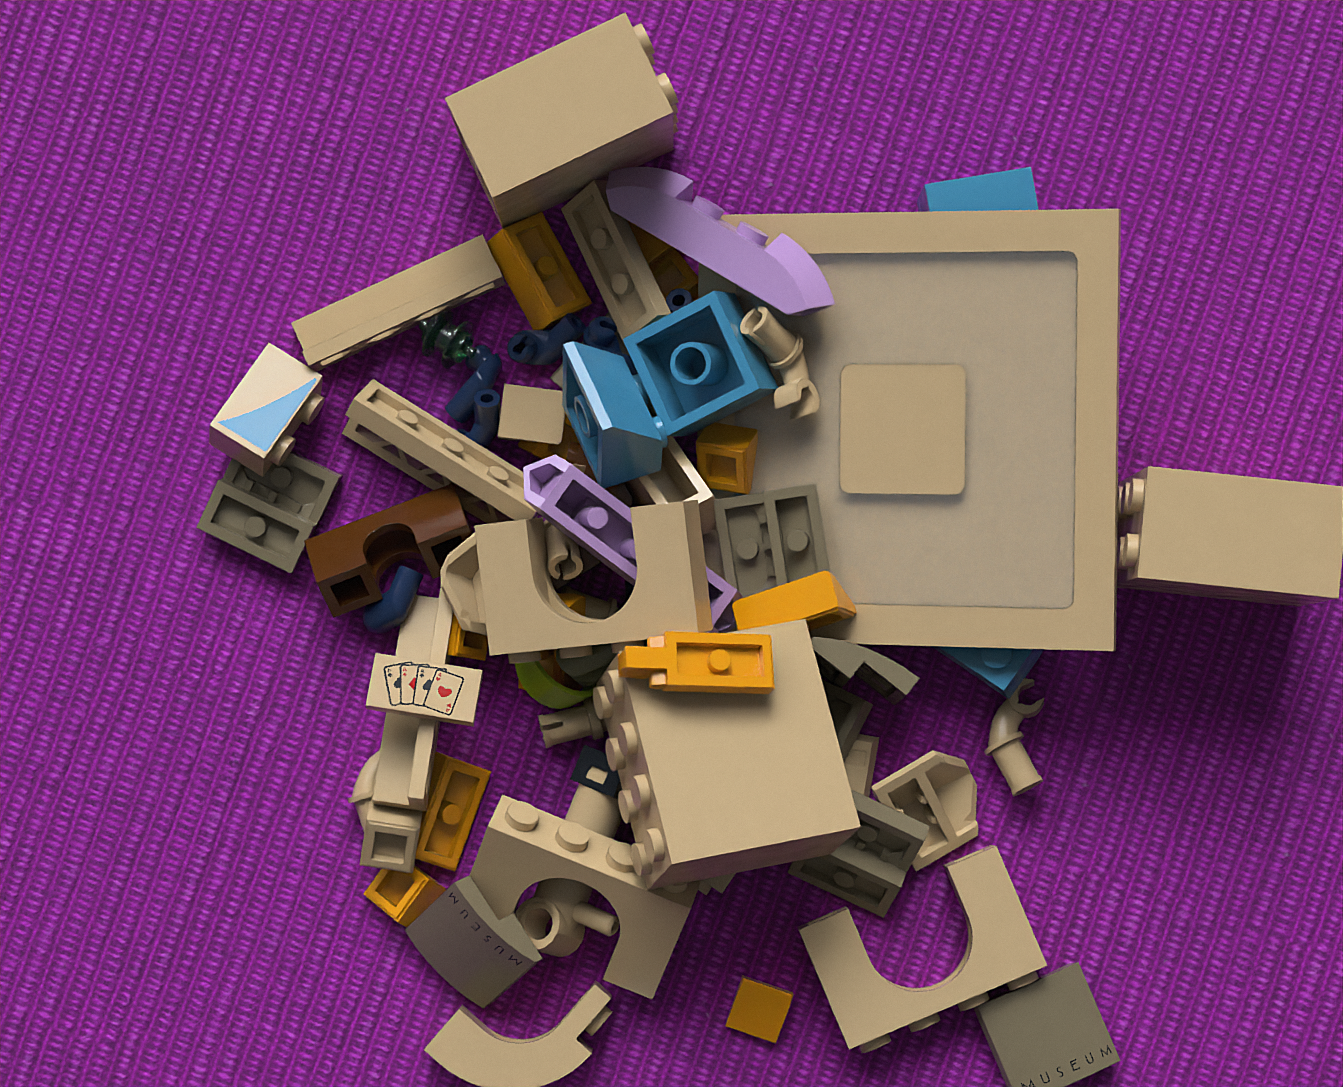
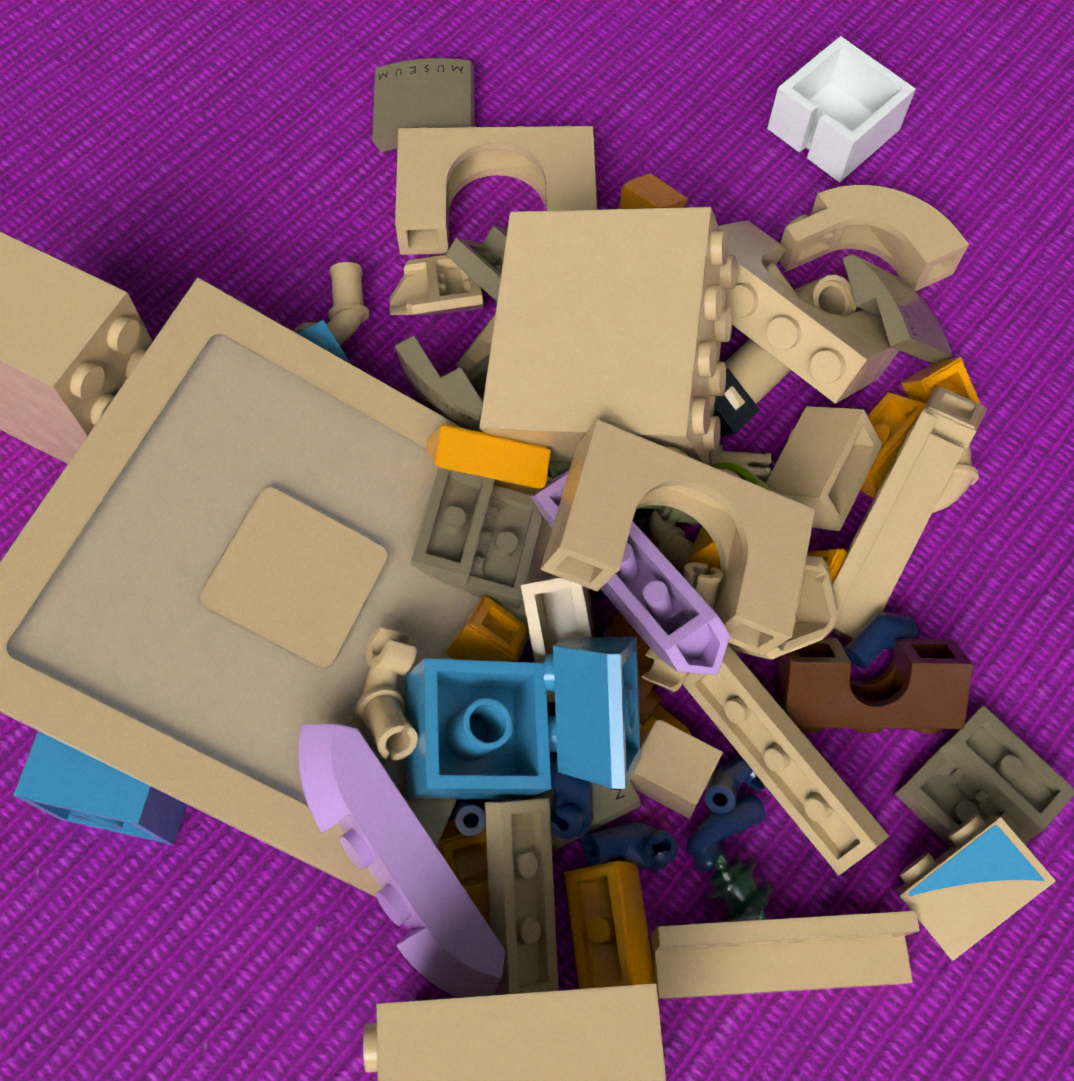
camera: 160 degrees left, 20 degrees down
(424, 689) = (890, 512): tan tile -> none
(498, 750) = (827, 462): none -> tan brick
(702, 662) = (605, 390): light orange hinge -> none

